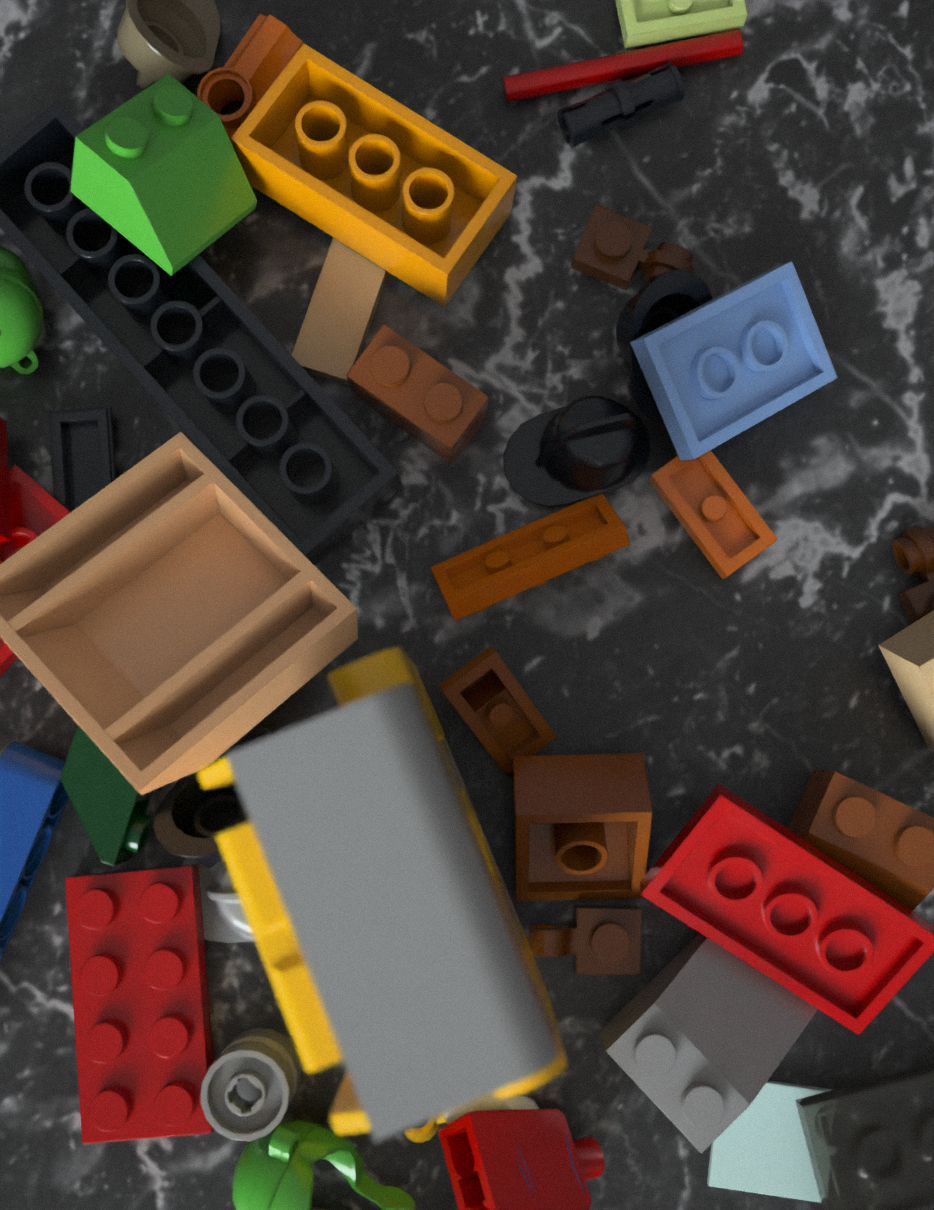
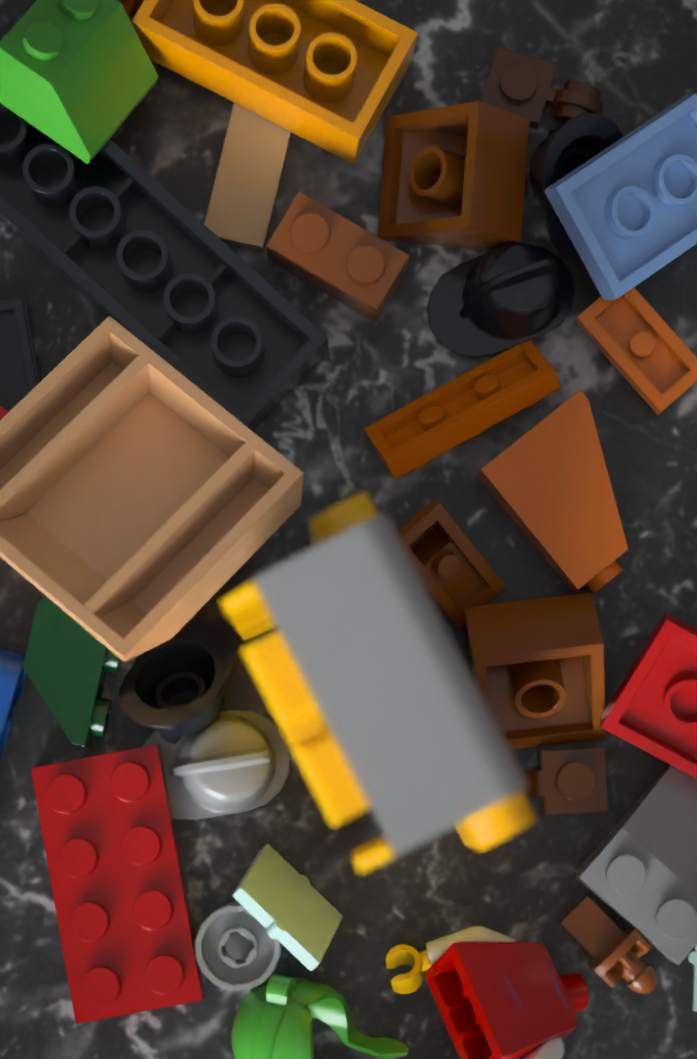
camera: 10 degrees left, 0 degrees up
(276, 1053) = (288, 907): none -> piece
(543, 325) = (454, 176): none -> dark orange slope
(622, 652) = (562, 495): none -> orange slope
(632, 1116) = (614, 950): none -> dark orange piece

